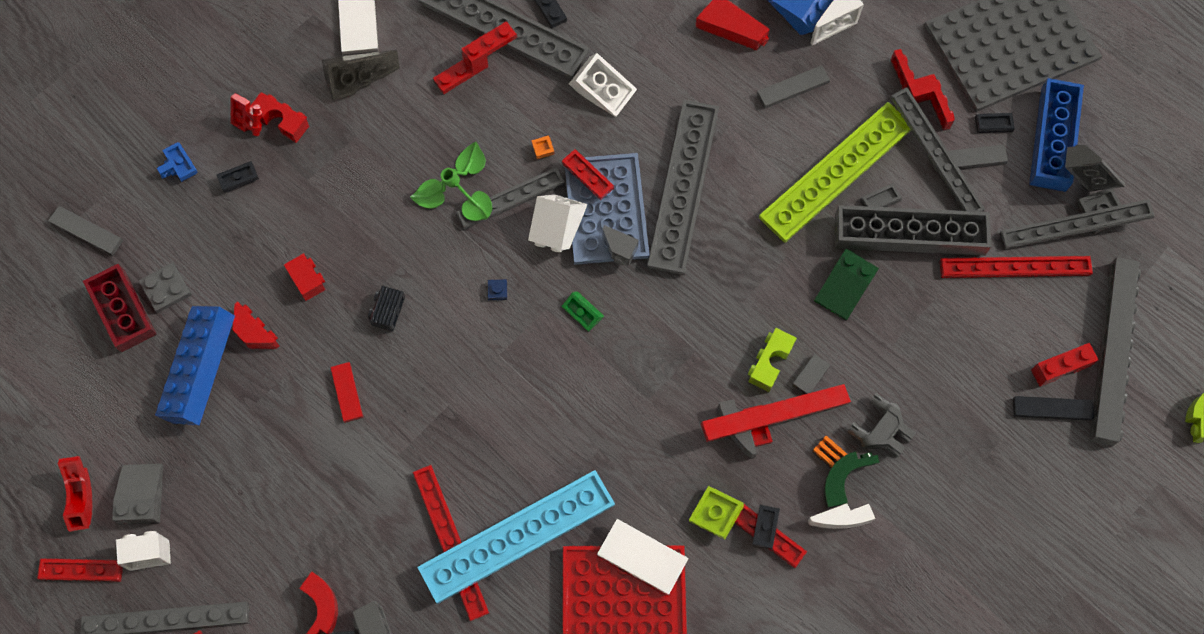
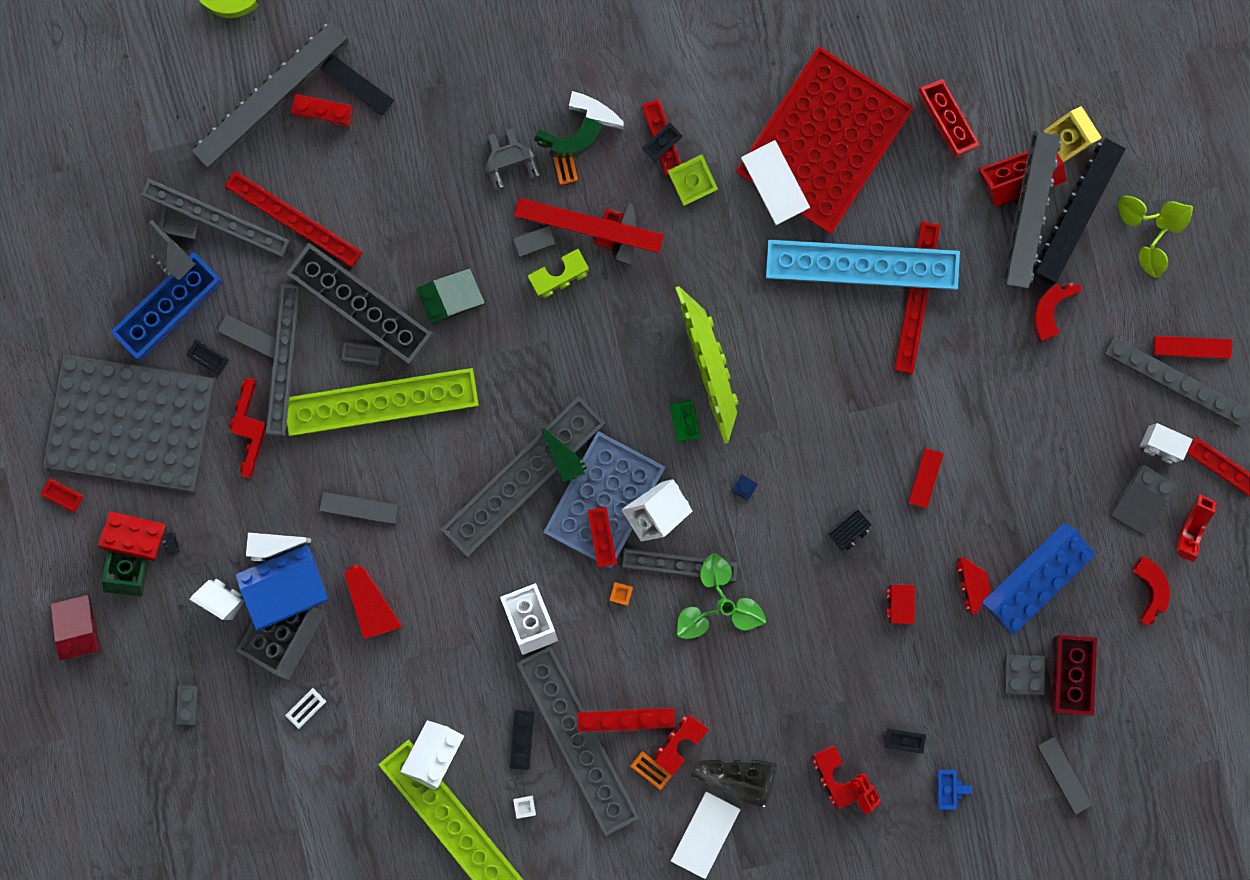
camera: 145 degrees left, 15 degrees up
(77, 415) = (1158, 588): none -> red arch
(418, 82) = (689, 729): none -> red arch
(431, 42) = (638, 760): none -> orange tile
(594, 359) = (710, 363): none -> lime brick
(620, 246) = (619, 451): dark grey slope -> none
(660, 213) = (566, 460): none -> dark green slope

